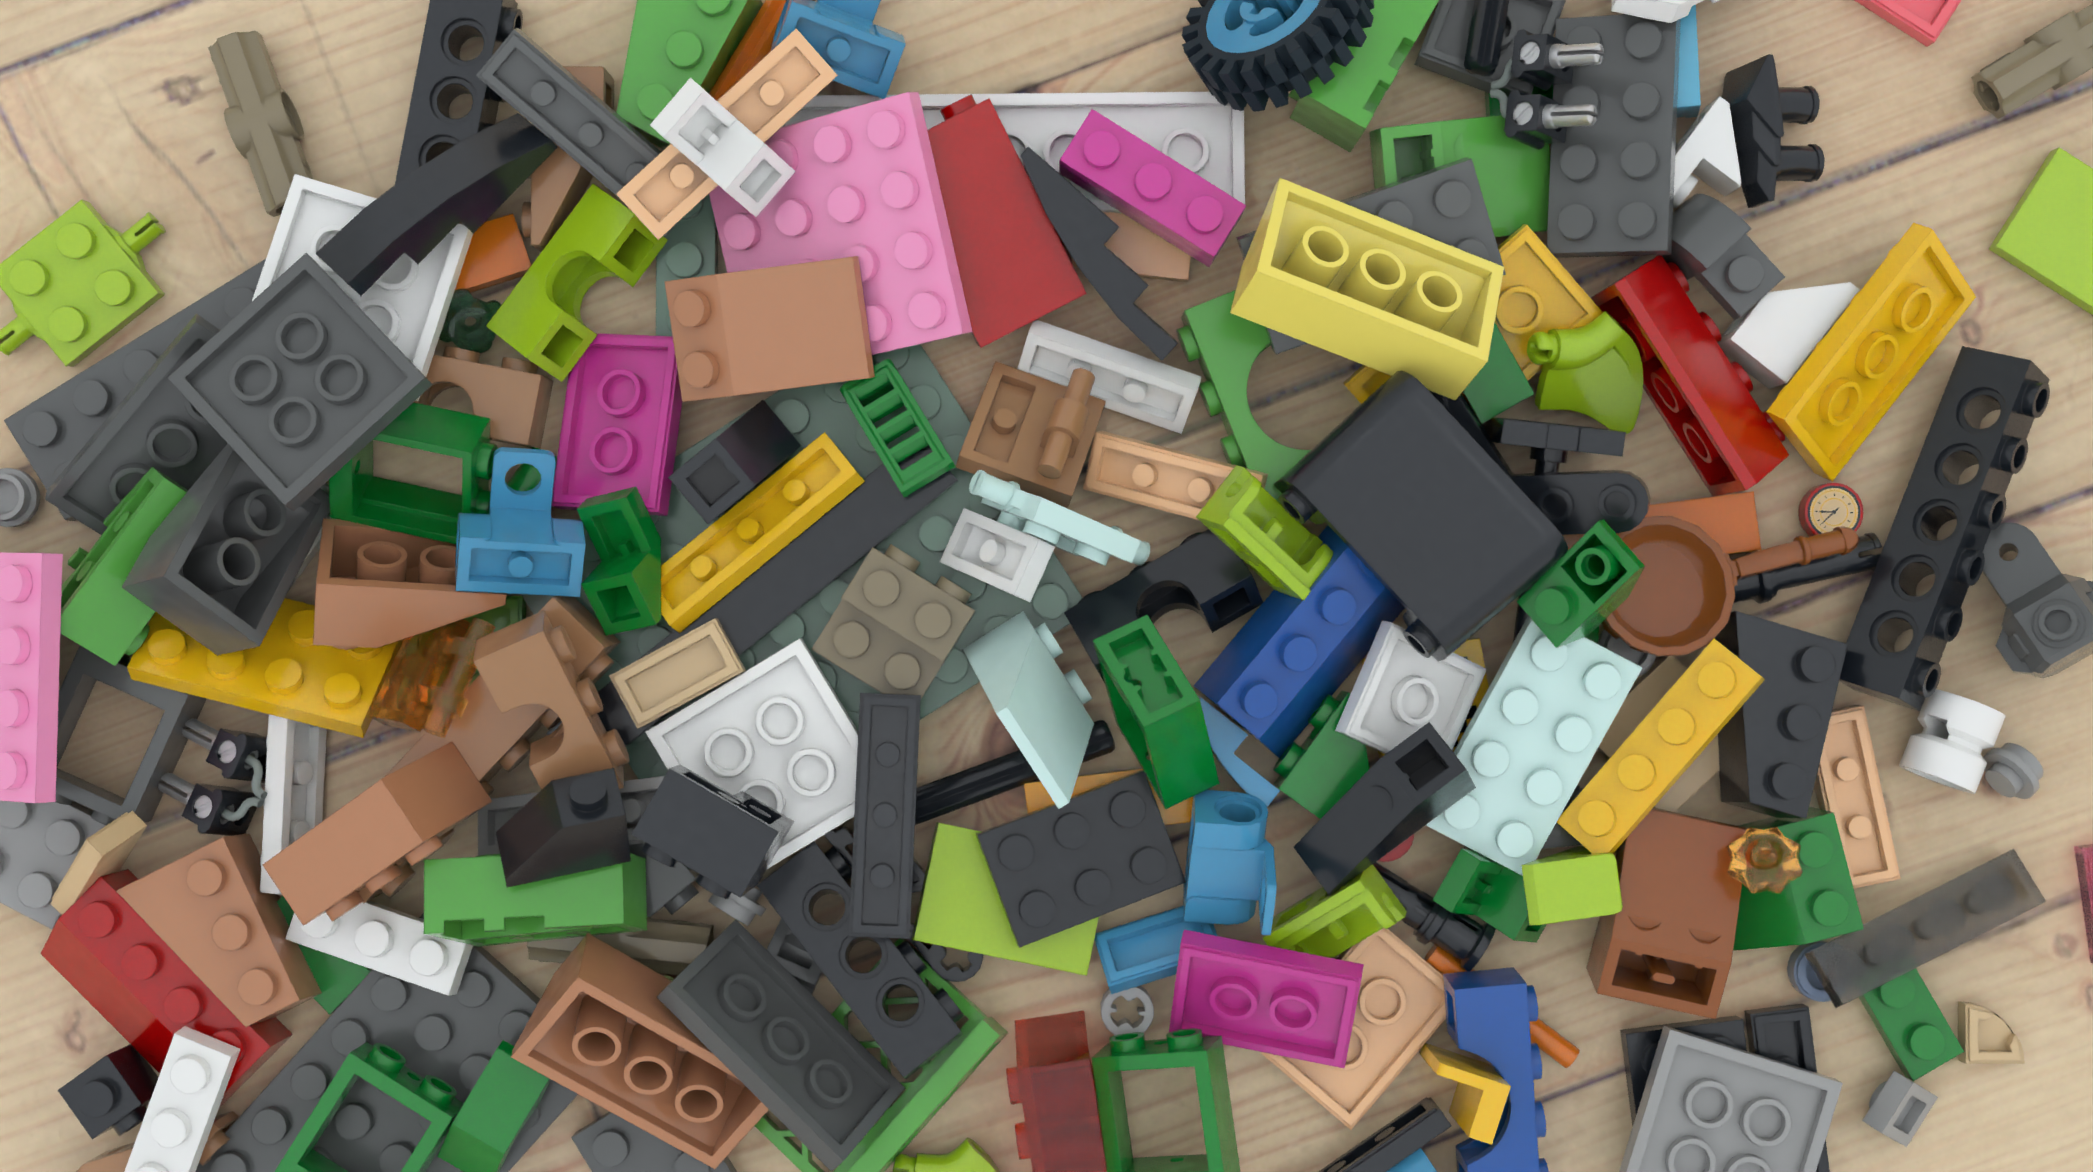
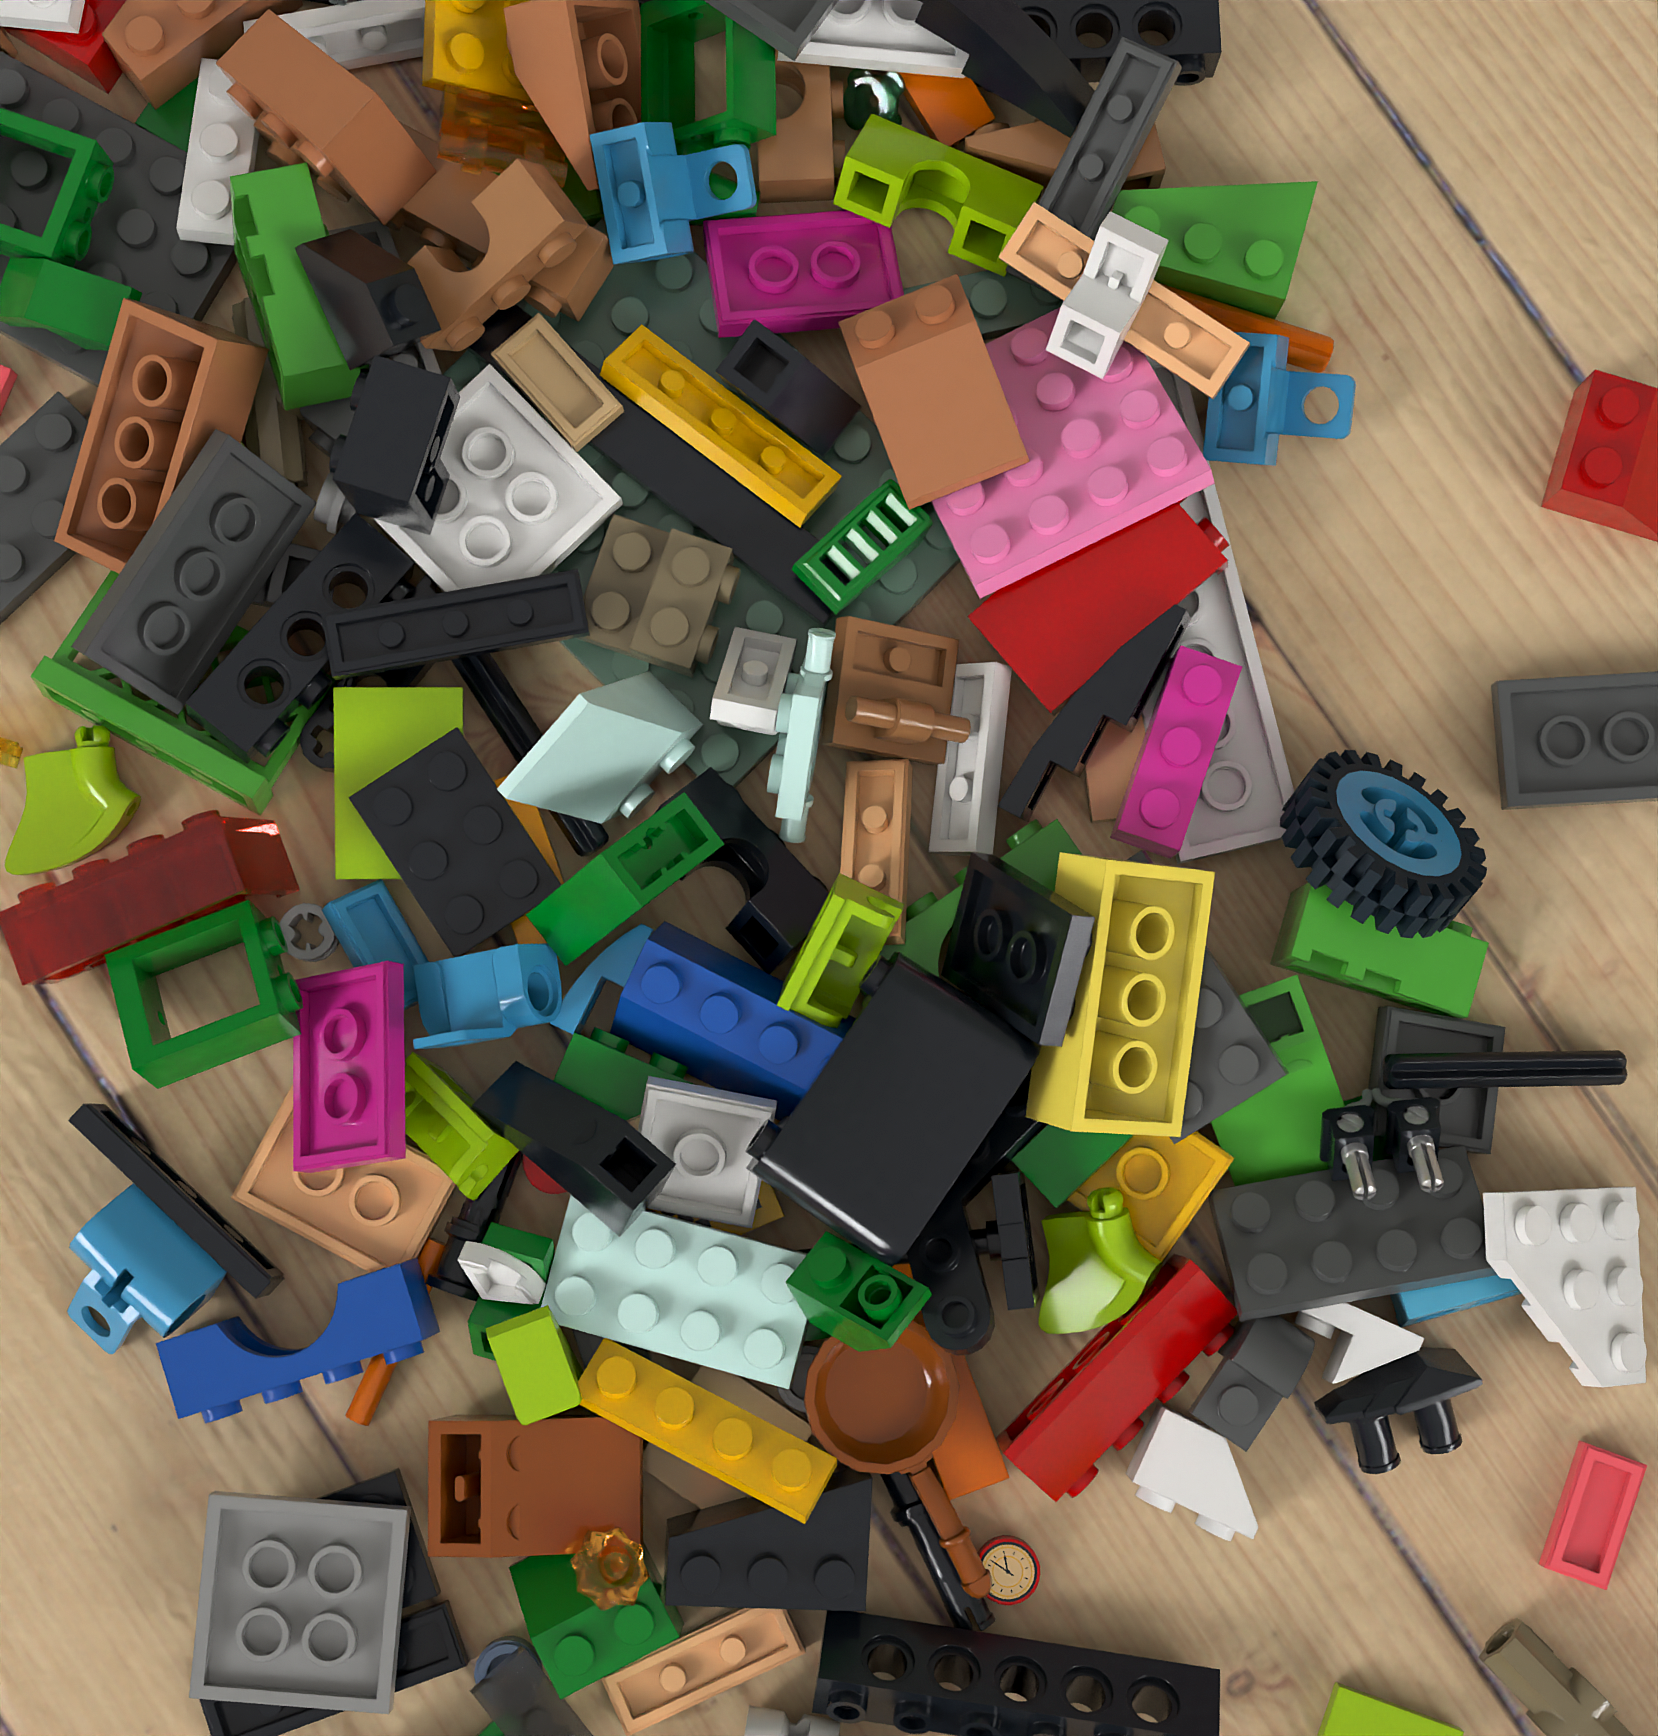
camera: 80 degrees right, 5 degrees down
(628, 578) = (638, 311): green slope -> none
(1306, 371) = (1018, 948): none -> black plate
(1479, 1091) = (303, 1320): yellow panel -> none
(1481, 901) = (500, 1275): none -> white tile
(1872, 352) = (1189, 1570): yellow plate -> none

